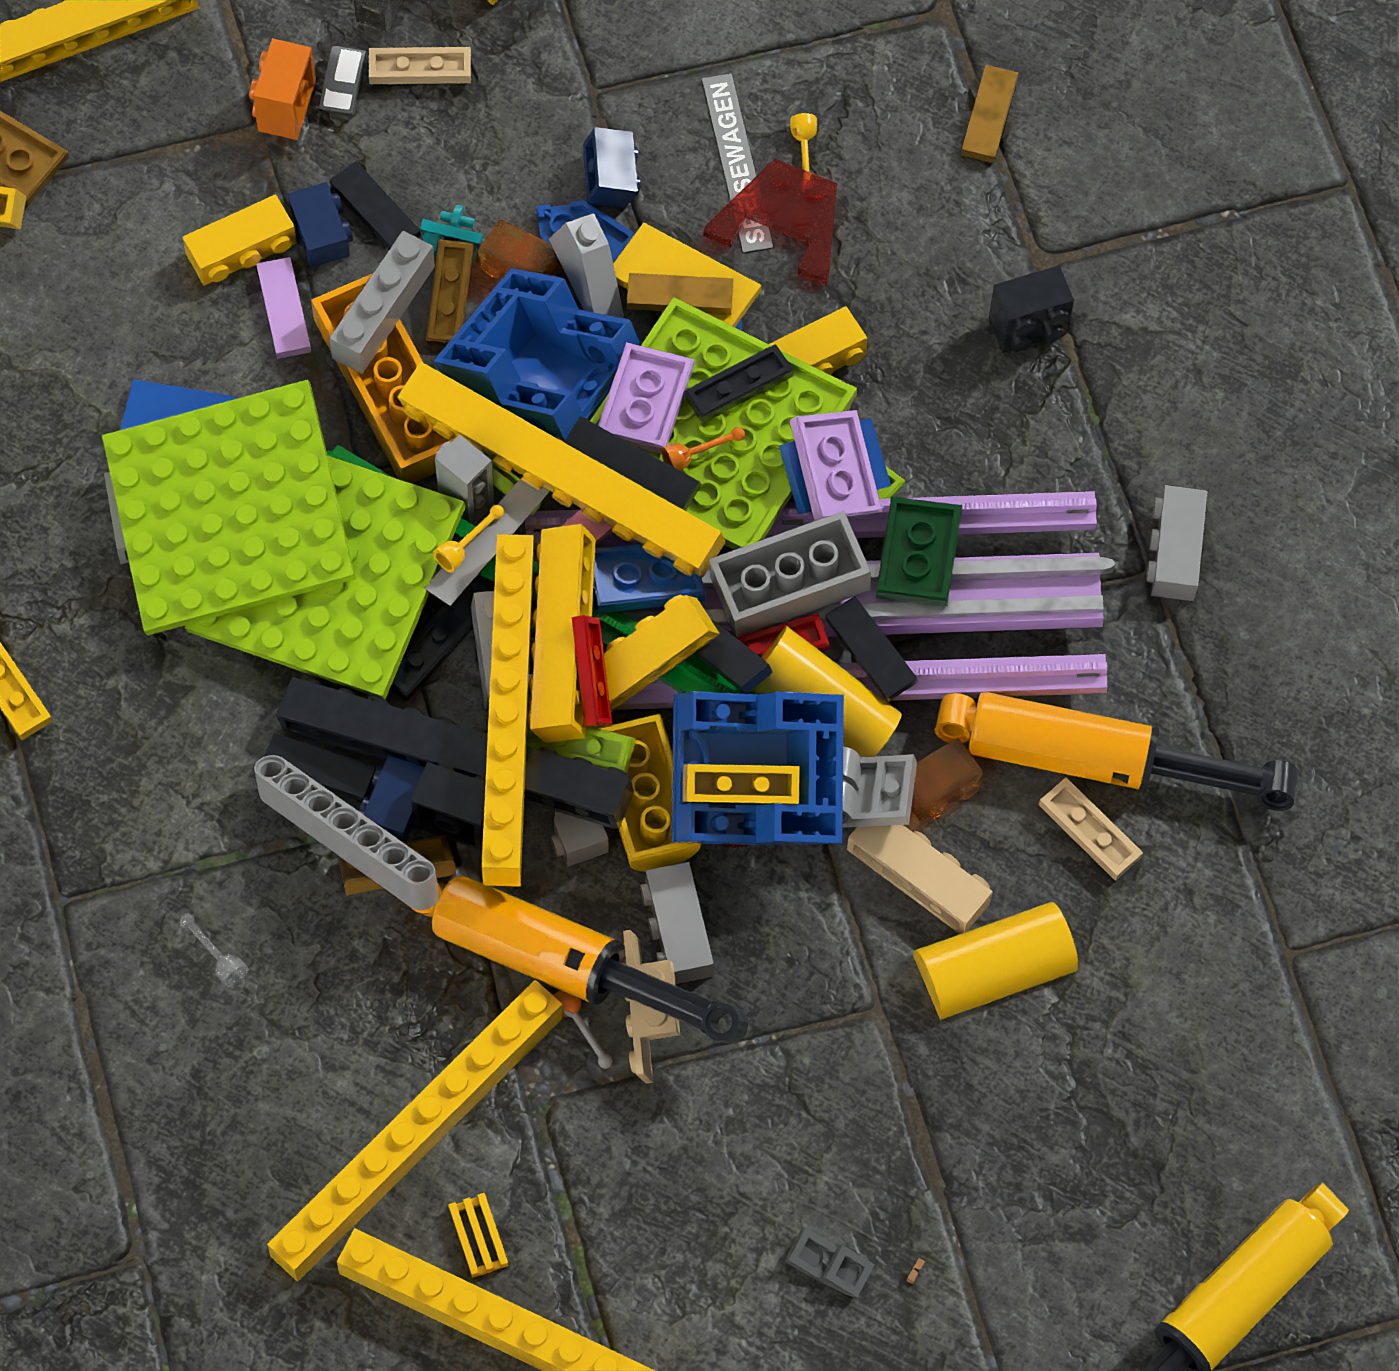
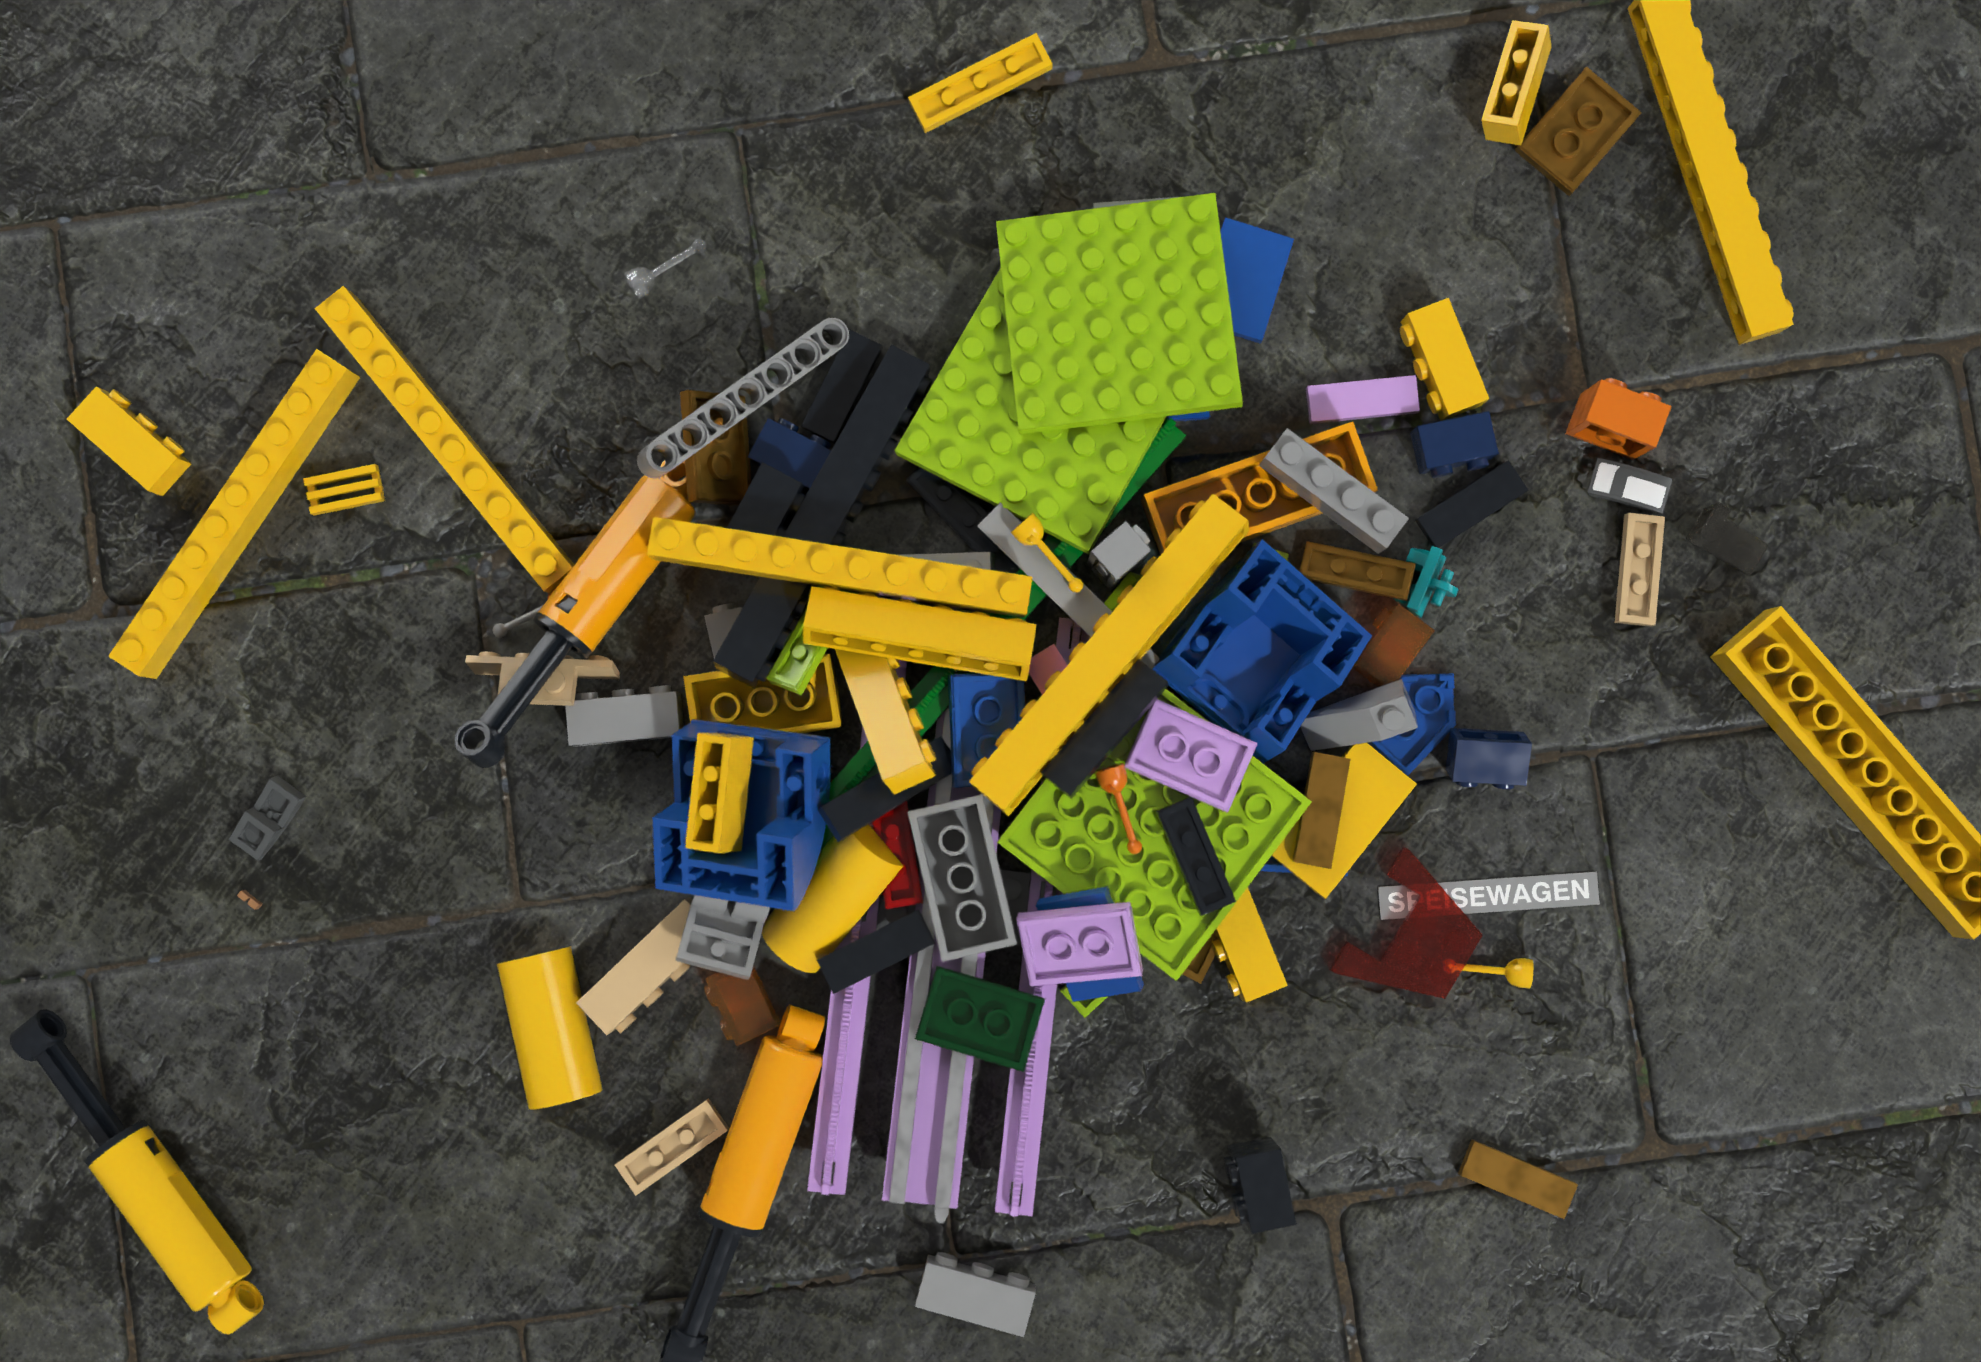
camera: 100 degrees right, 20 degrees up
(592, 671) = (868, 656): red tile -> none

